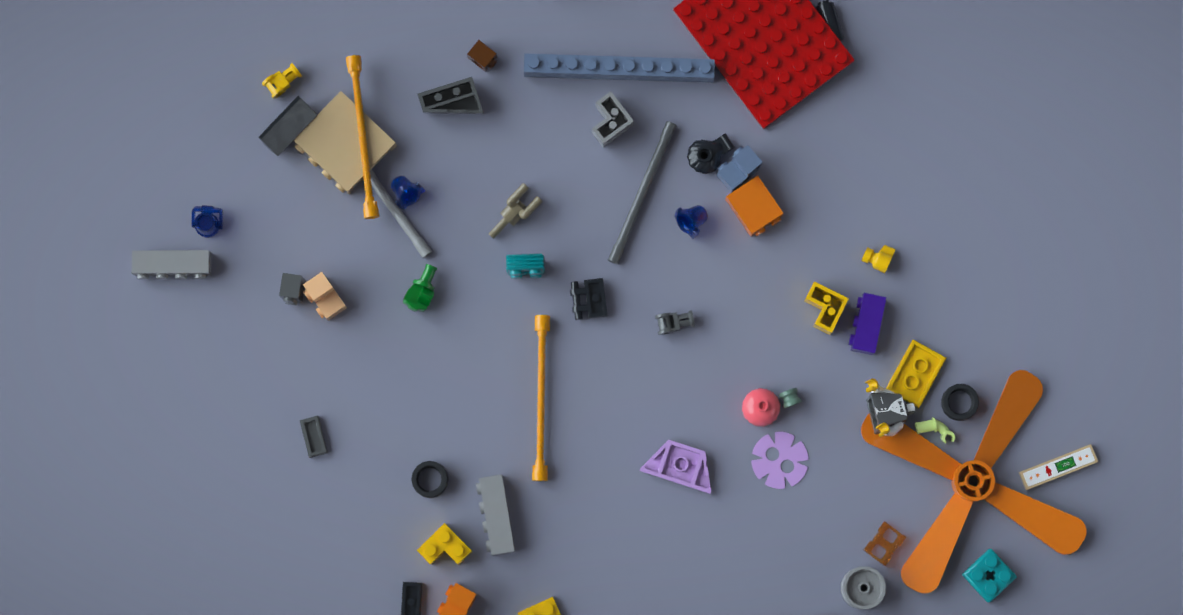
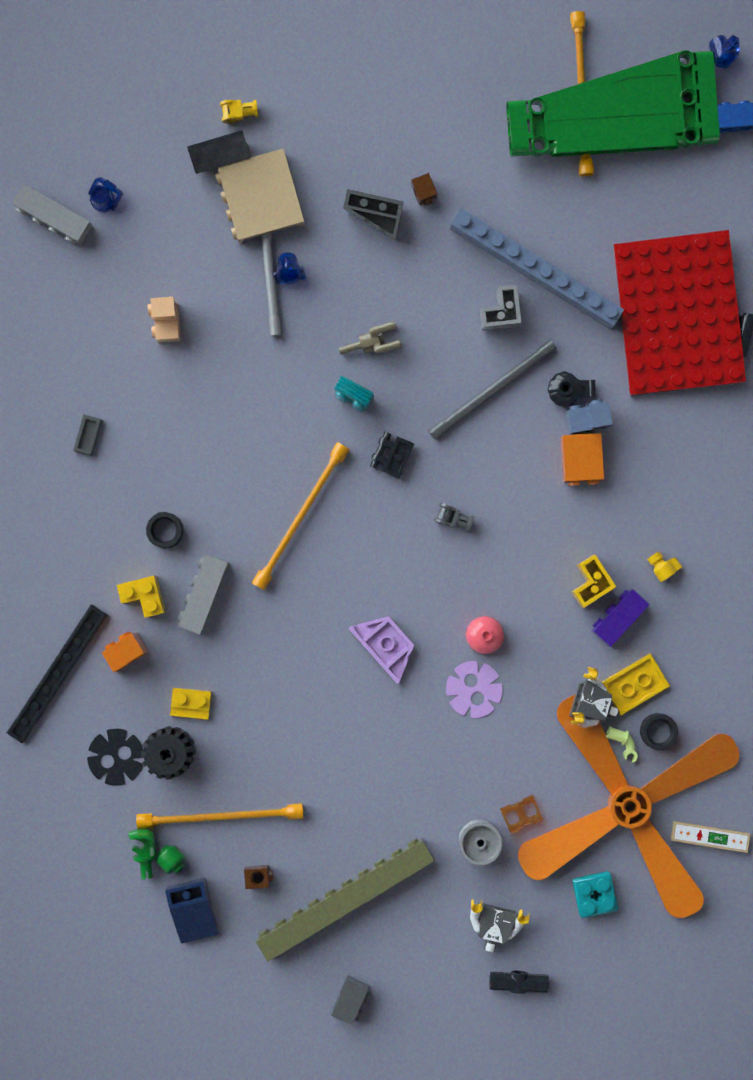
camera: 30 degrees right, 5 degrees up
(292, 288) = (139, 296): dark grey brick -> none
(370, 206) = (306, 134): light orange hose -> none
(421, 292) = (251, 364): green piece -> none
(691, 219) = (520, 437): clear blue piece -> none
(790, 398) = (514, 642): sand green wheel -> none

